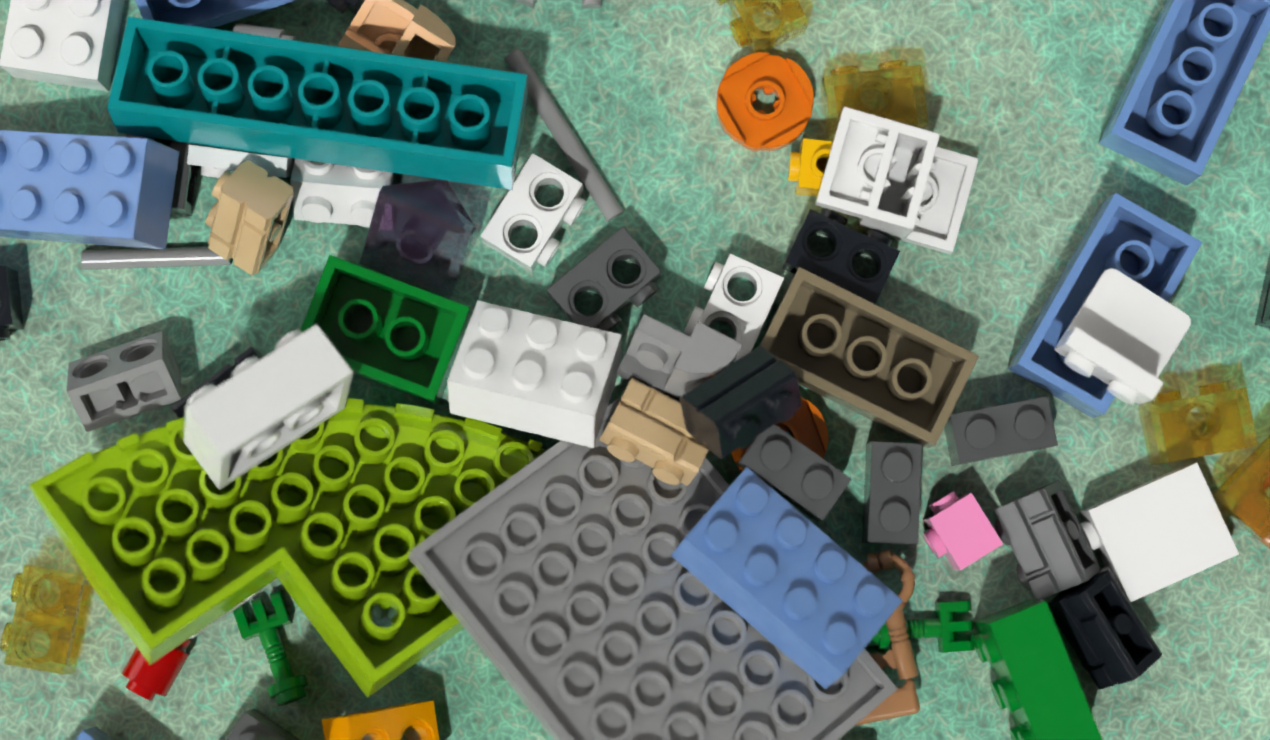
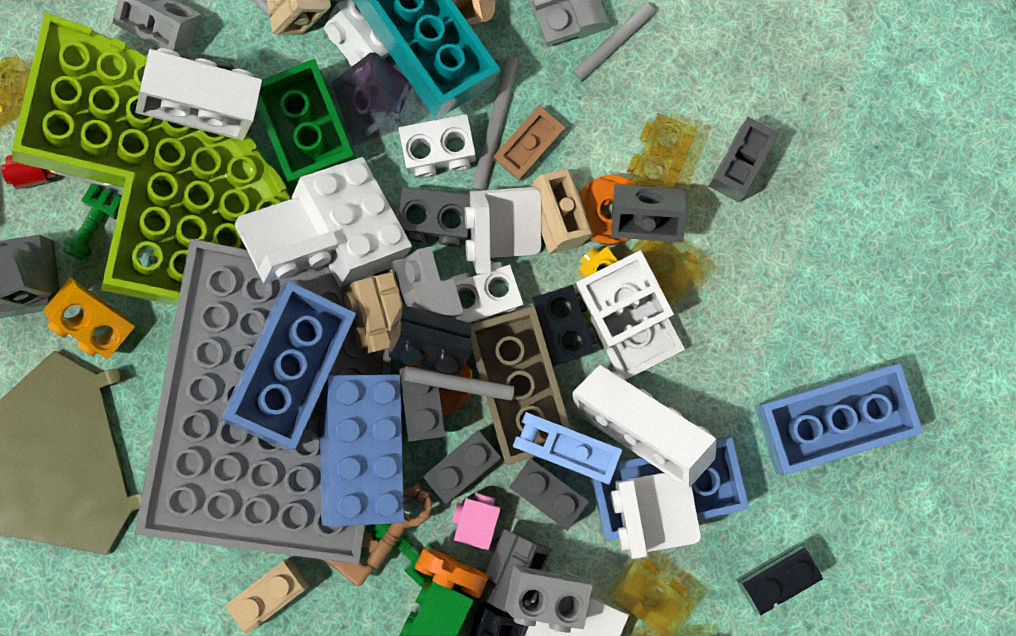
camera: 55 degrees right, 0 degrees up
(498, 458) = (284, 240): none -> white bracket
(618, 119) = (529, 143): none -> medium nougat plate
(637, 570) = (288, 367): none -> medium blue brick
(682, 224) = (502, 225): none -> white bracket
(720, 153) = (562, 212): none -> tan brick
(811, 64) = (648, 213): none -> dark grey brick
(811, 414) = (458, 383): none -> light grey bar
(979, 364) = (569, 448): none -> light blue plate
(993, 600) = (449, 572): none -> orange plate
(1023, 268) = (645, 425): none -> white brick
(1106, 517) = (550, 590): none -> light grey brick

